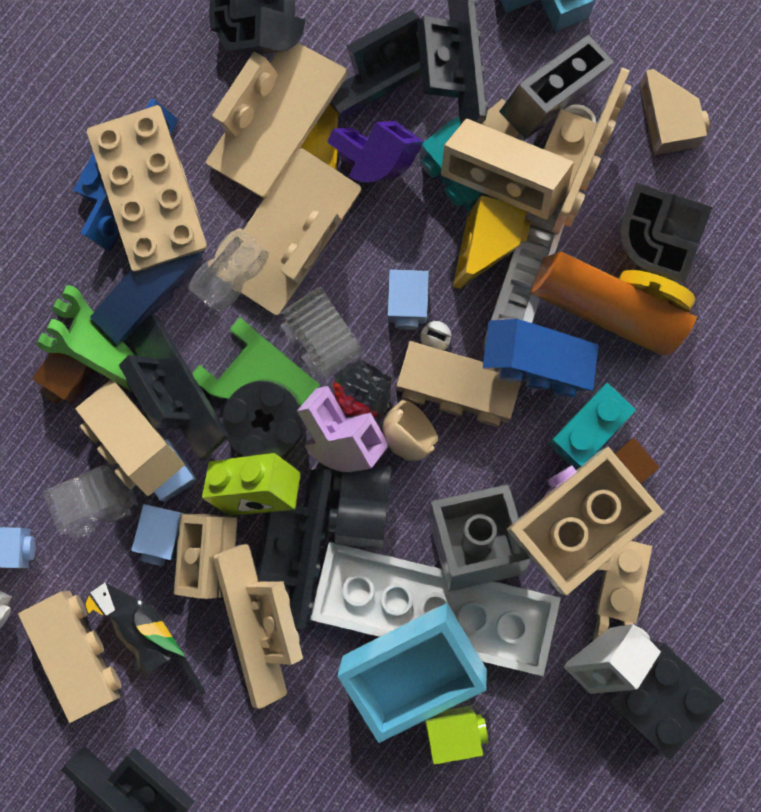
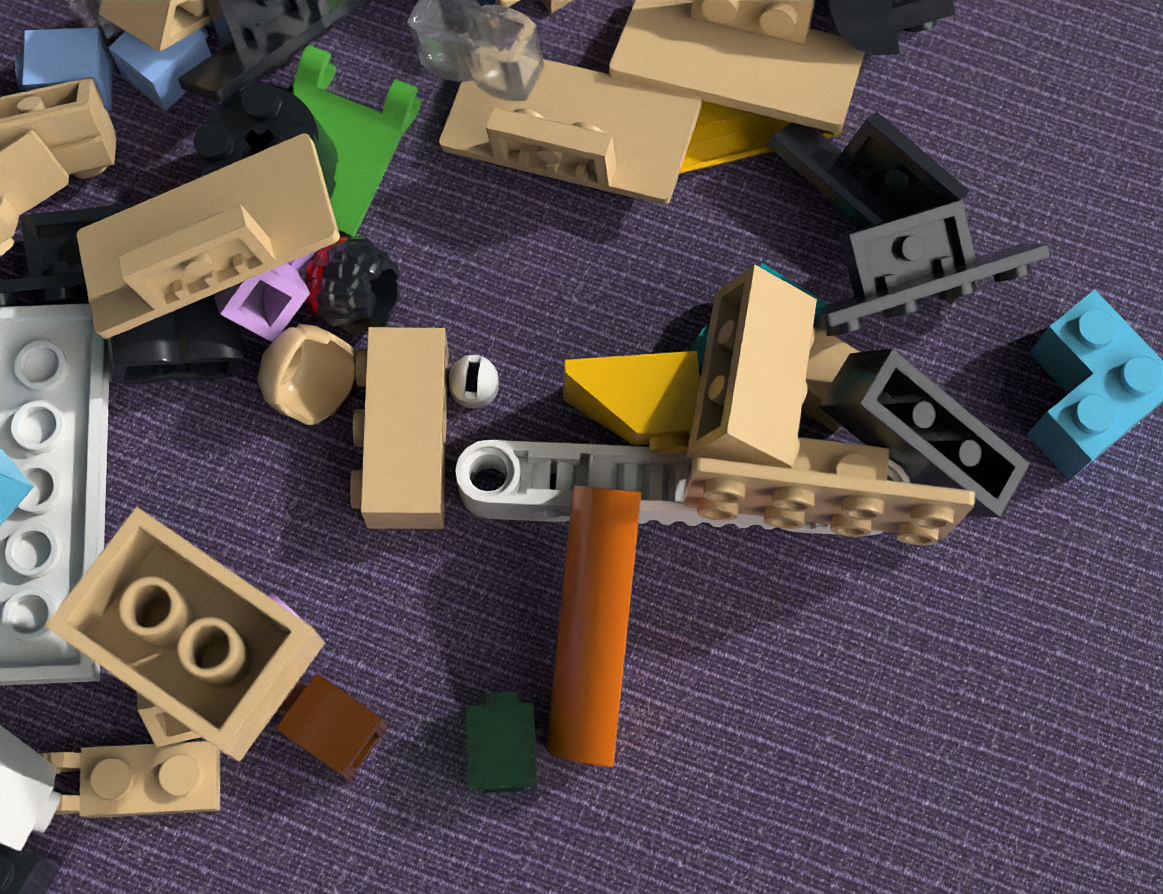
camera: 70 degrees right, 10 degrees down
(251, 484) = (155, 146): lime brick -> none
(321, 333) = (426, 208): clear brick -> none
(326, 461) = (206, 236): none -> tan bracket
(379, 157) = (732, 205): dark purple brick -> none
(408, 298) = (517, 317): light blue brick -> none
(474, 537) = (166, 478): dark grey brick -> none
(540, 357) = (466, 525): blue brick -> none
(591, 426) = (387, 650): teal brick -> none
(661, 288) = (636, 690): yellow tile -> none
(661, 377) = (501, 745): none -> clear green brick
(663, 231) = (745, 677): black brick -> none
(672, 114) = (950, 648): tan slope -> none

